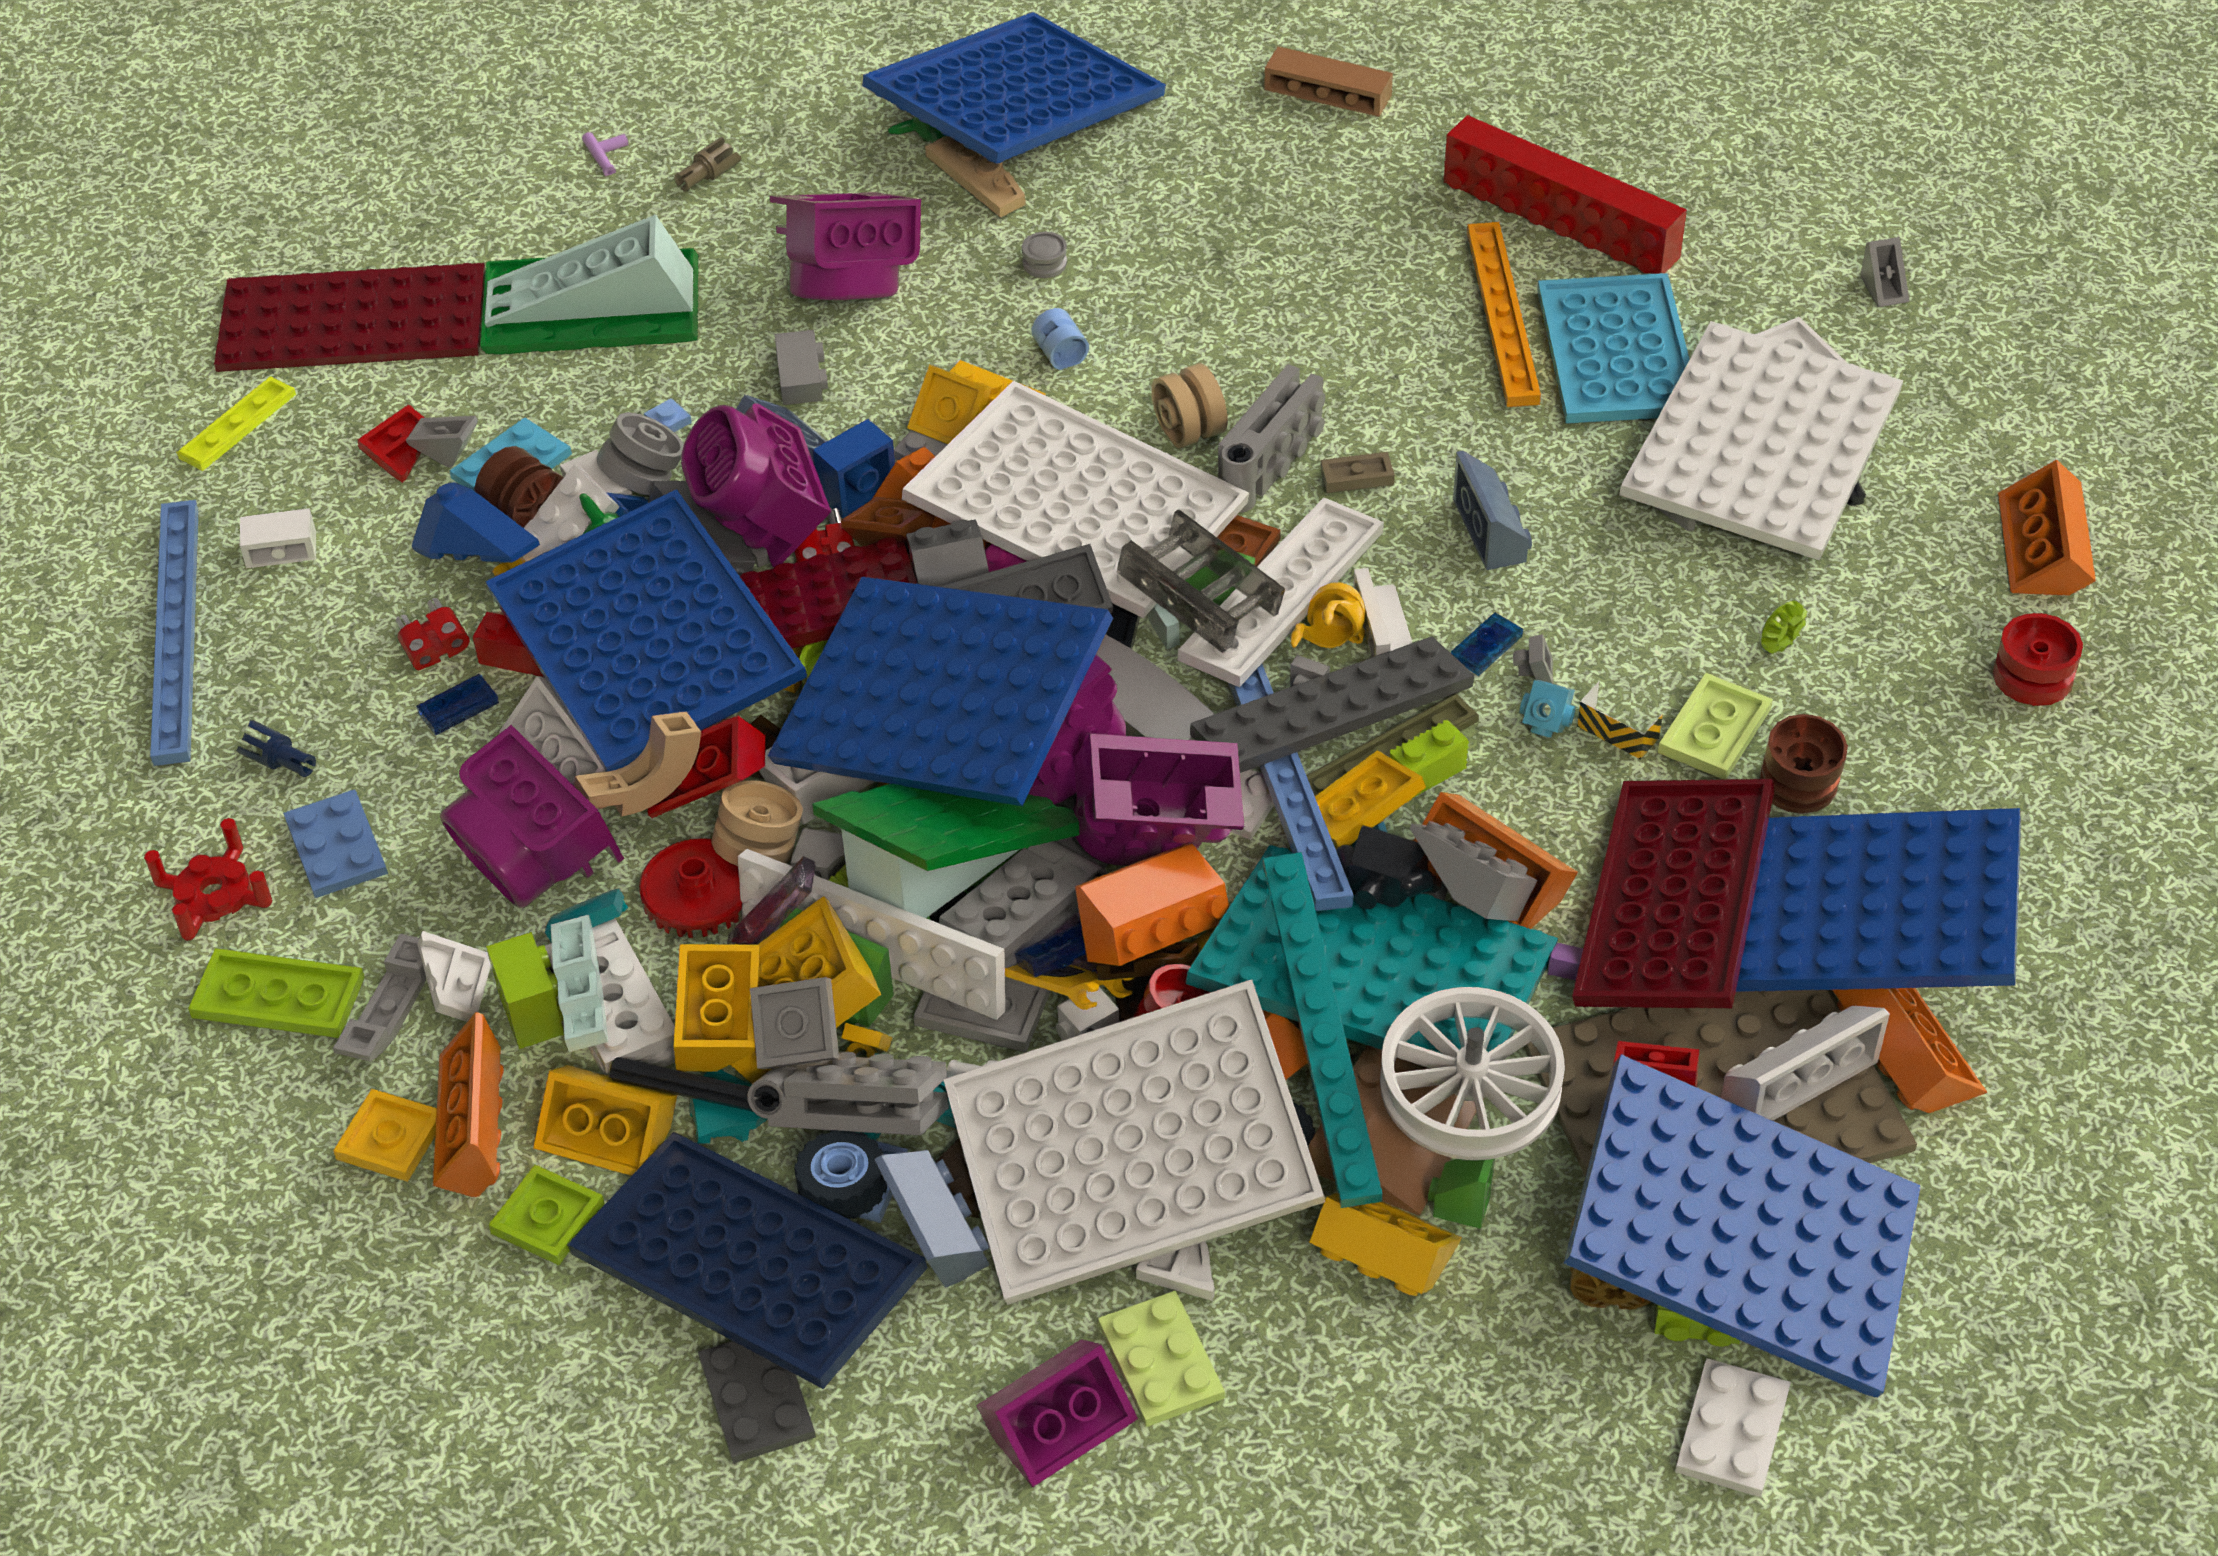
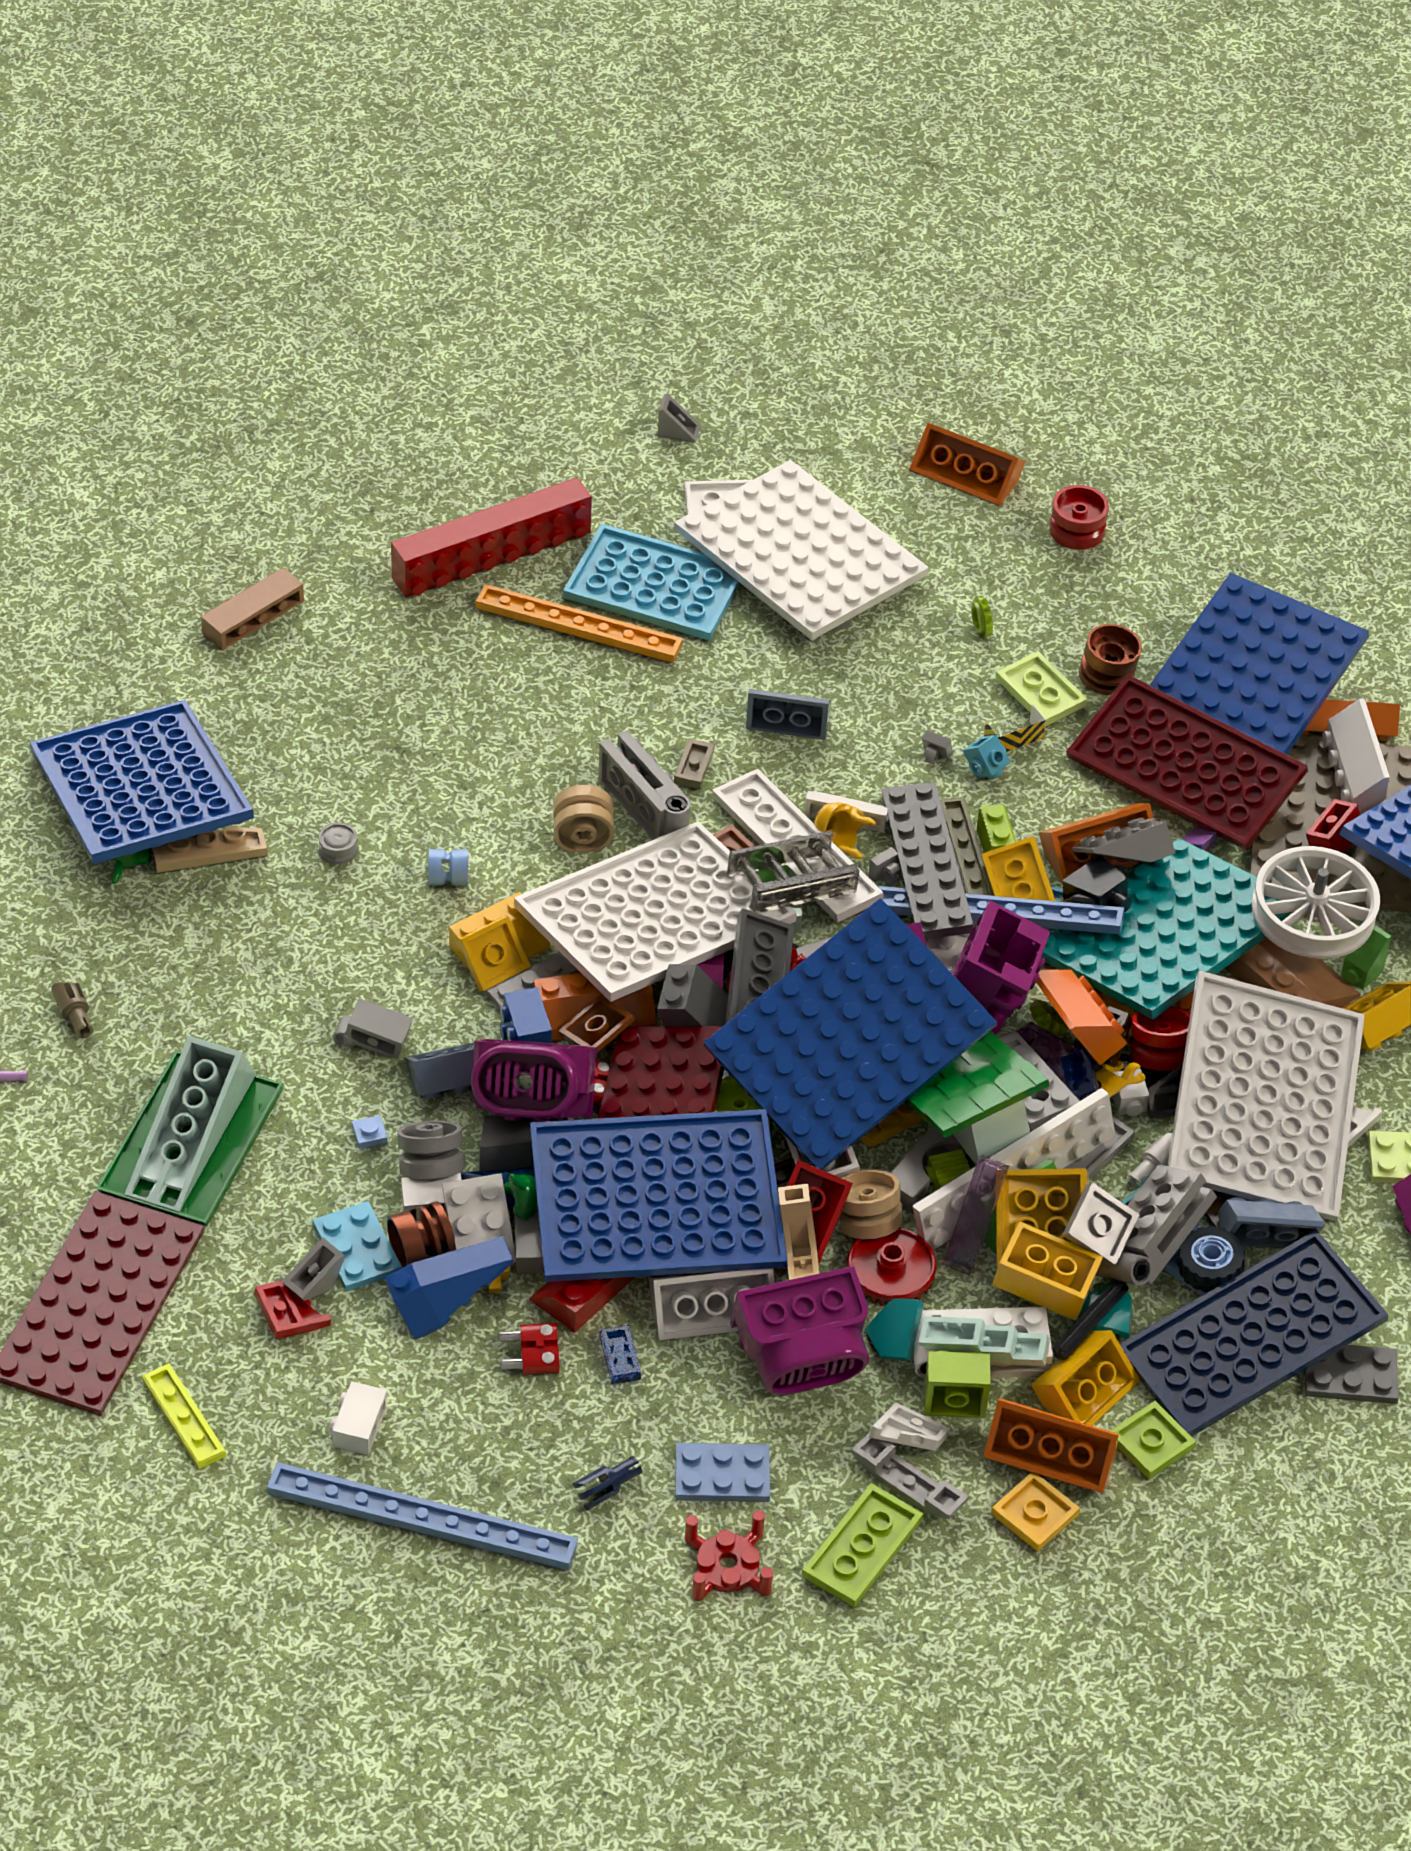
camera: 70 degrees left, 0 degrees up
(849, 243) = (269, 943): magenta brick -> none
(1322, 1031) = (1234, 960): teal plate -> none
(1487, 643) = (898, 765): plate -> none

